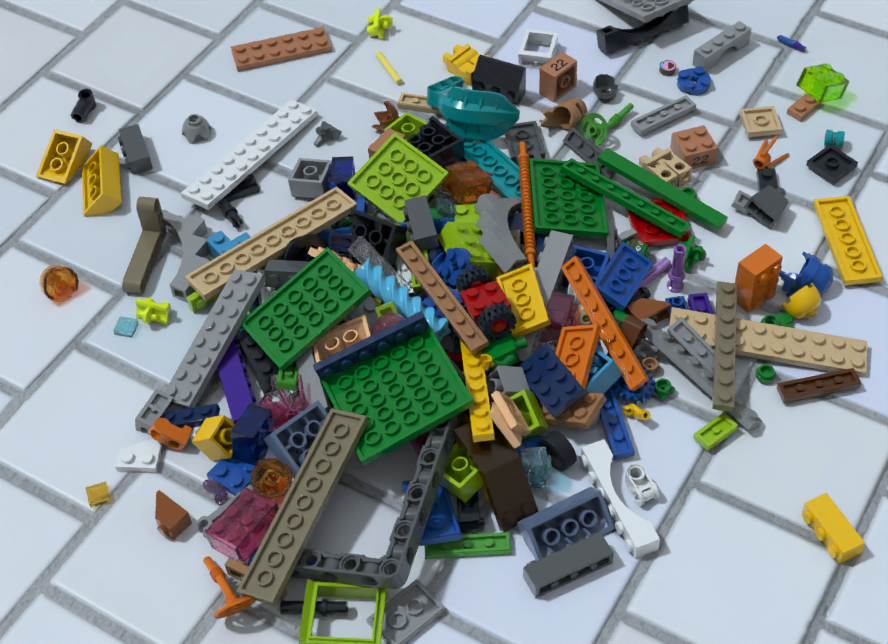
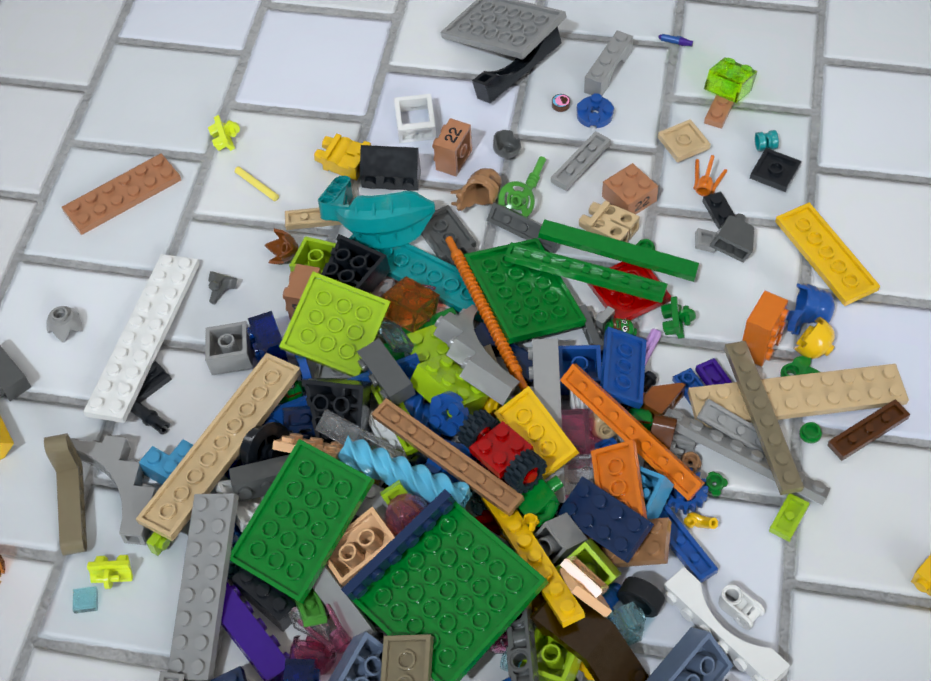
camera: 20 degrees left, 5 degrees up
(677, 274) = (676, 346): medium lavender pin -> none

